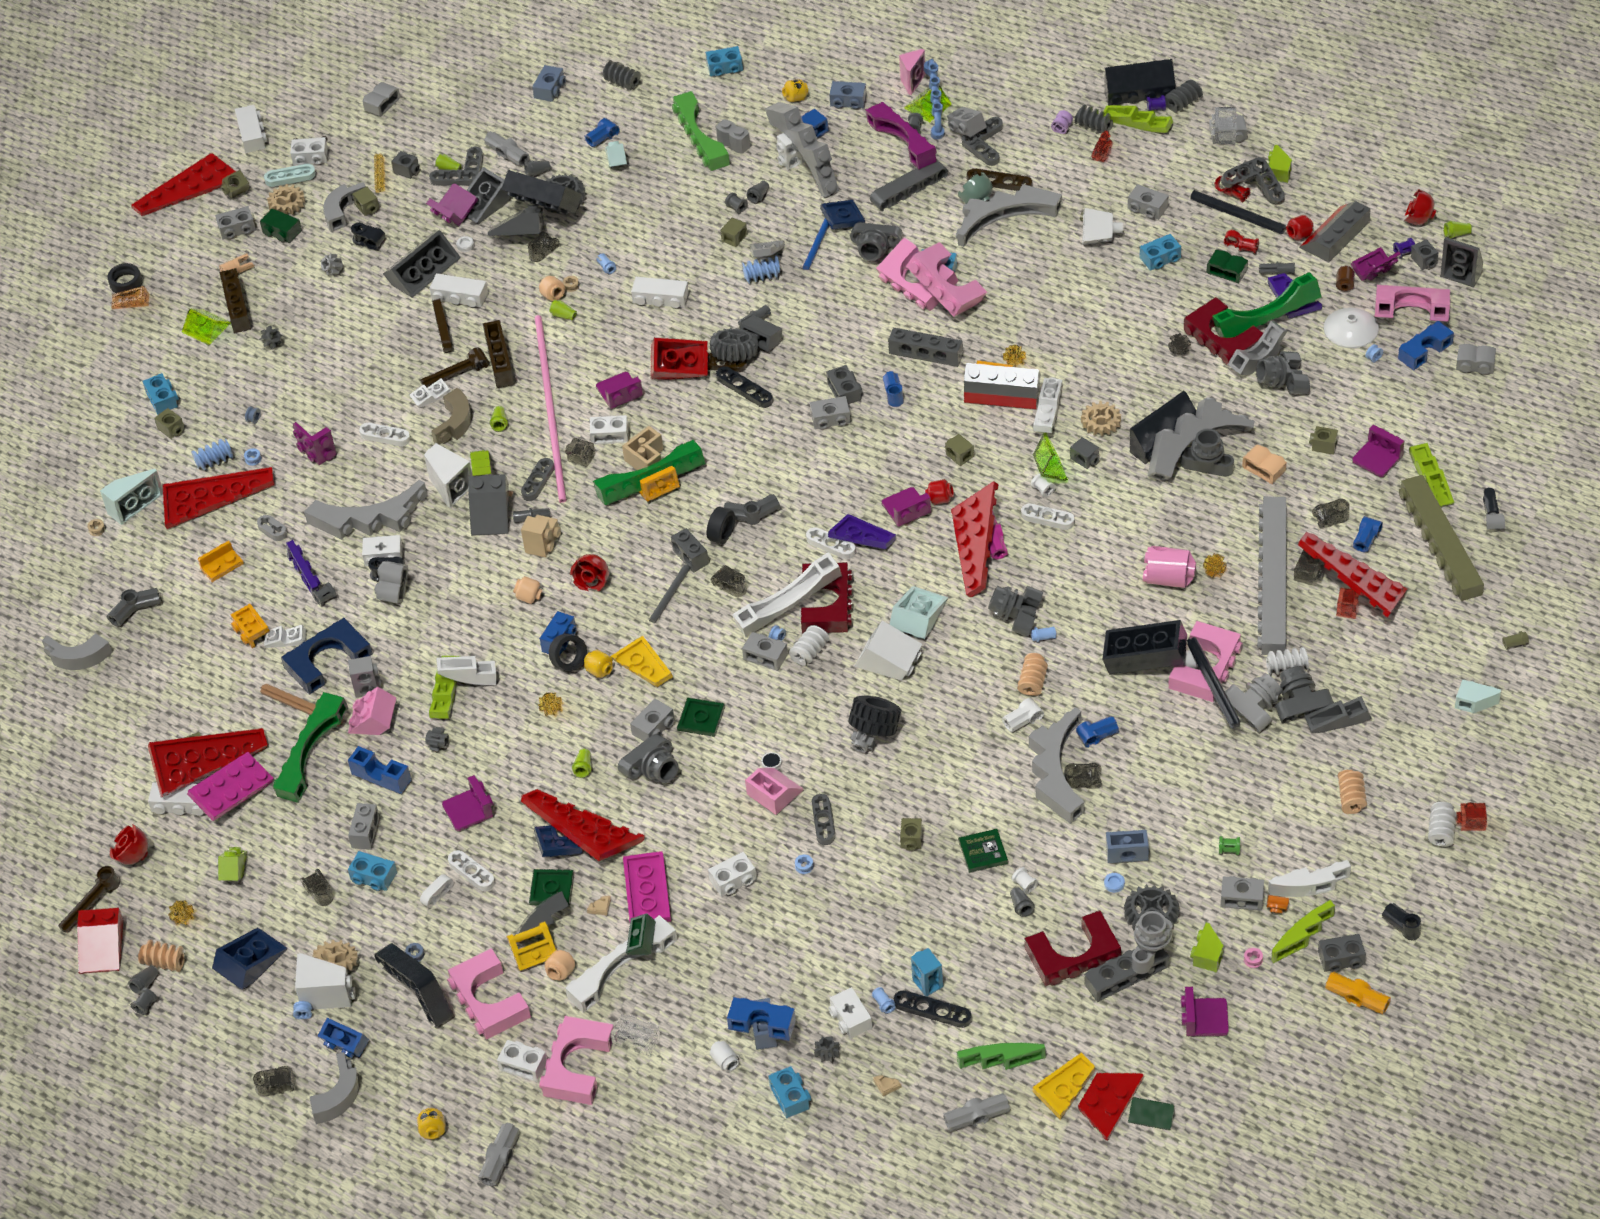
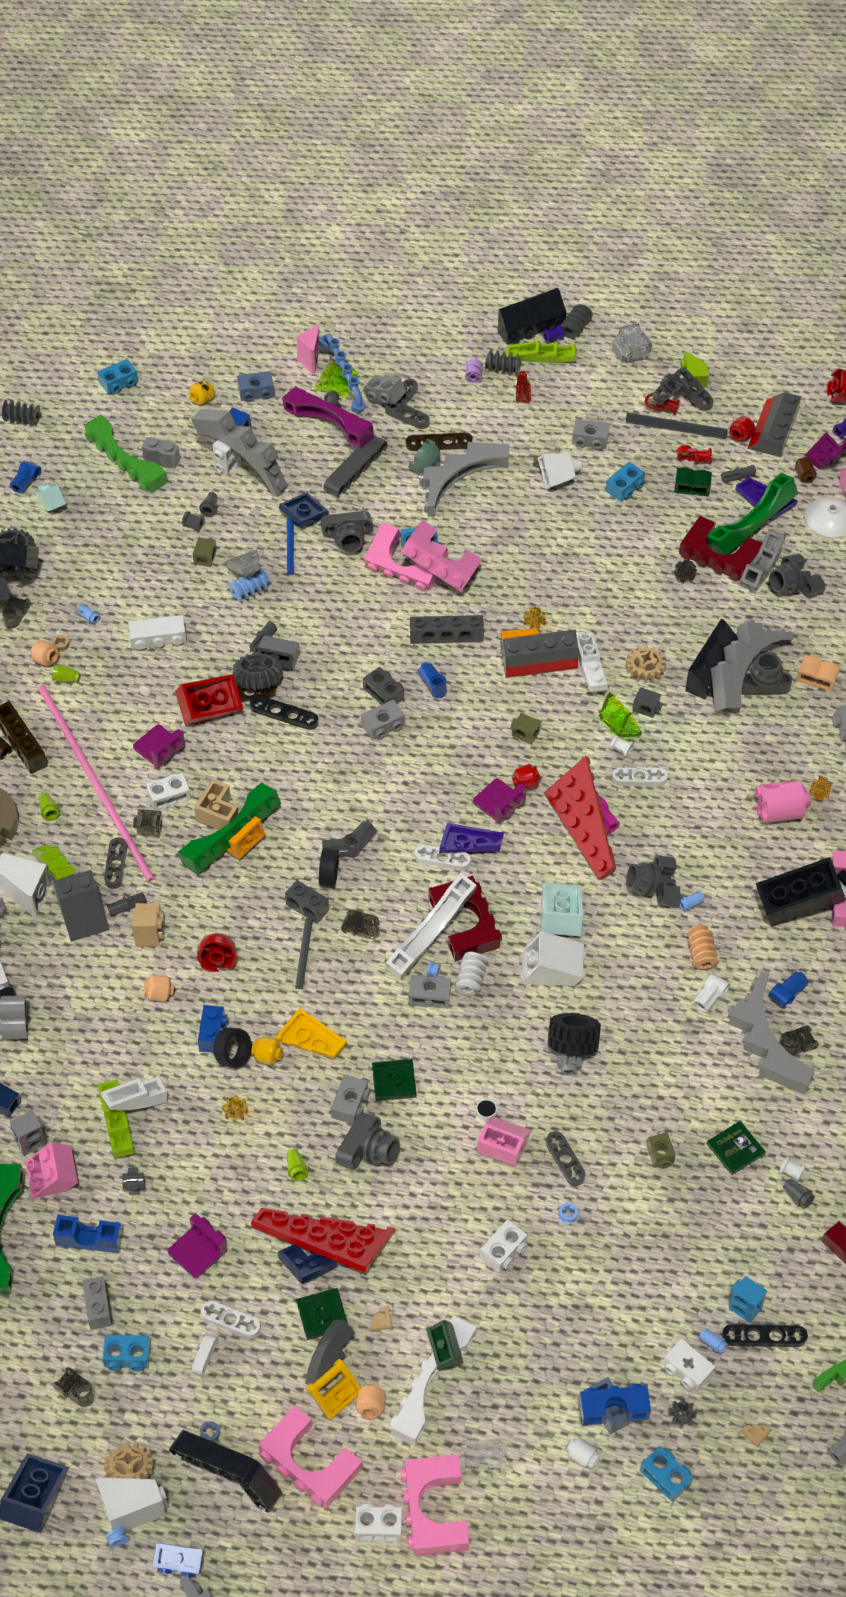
camera: 25 degrees left, 5 degrees up
(646, 885) = (422, 1286): dark pink plate -> none

